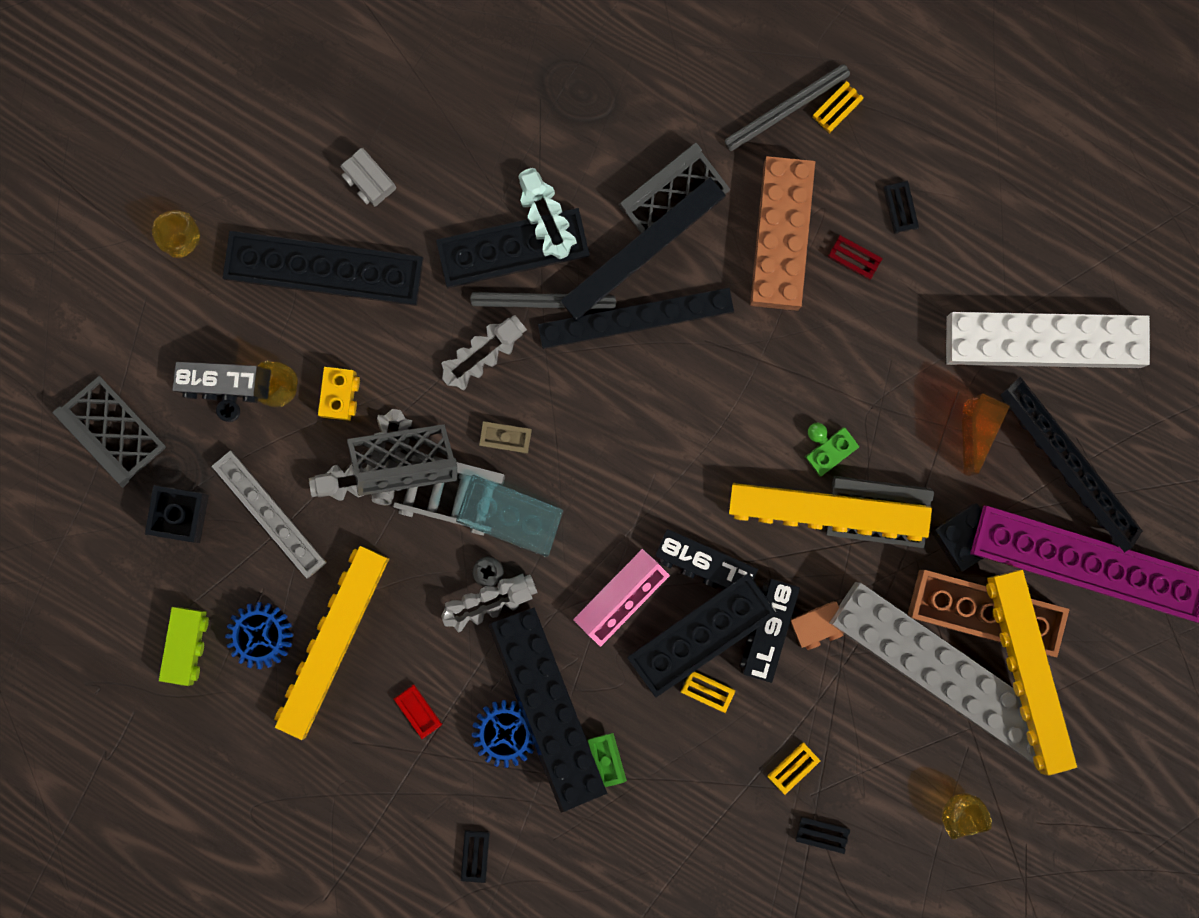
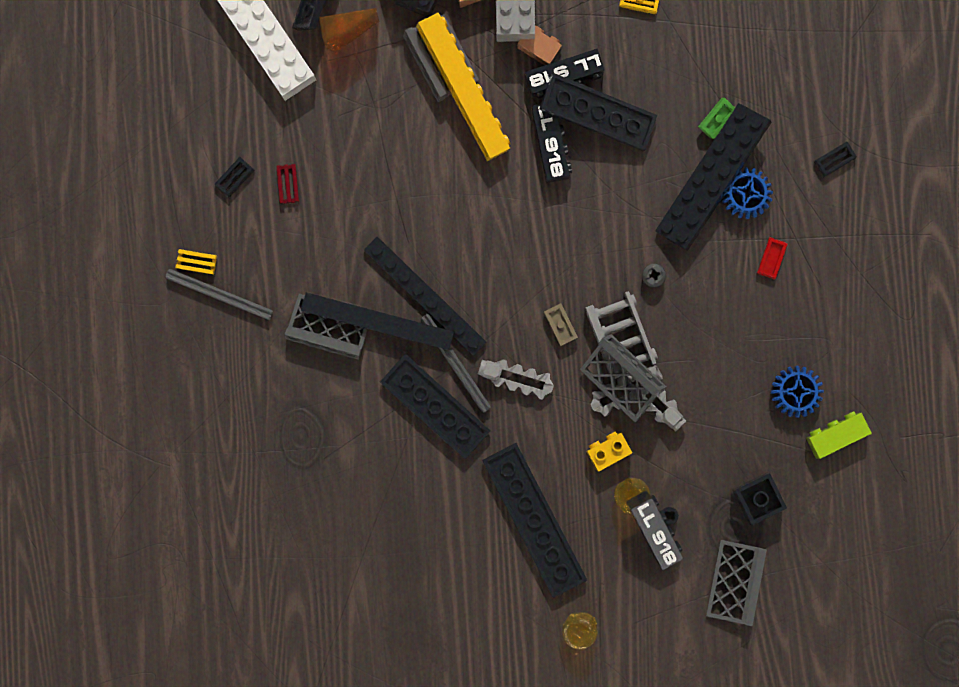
camera: 120 degrees left, 0 degrees up
(269, 514) = (716, 441): light grey plate -> none
(331, 643) = (768, 342): yellow brick -> none
(368, 177) = (455, 533): light grey brick -> none
(509, 515) = (609, 285): clear light blue tile -> none
(518, 589) = (652, 247): light grey sword -> none
(534, 190) = (387, 418): light aqua sword -> none
(623, 593) = (610, 179): bright pink brick -> none
(727, 700) = (637, 86): yellow tile -> none
(782, 233) = (304, 239): nougat brick -> none
(831, 449) = (423, 114): bright green plate -> none

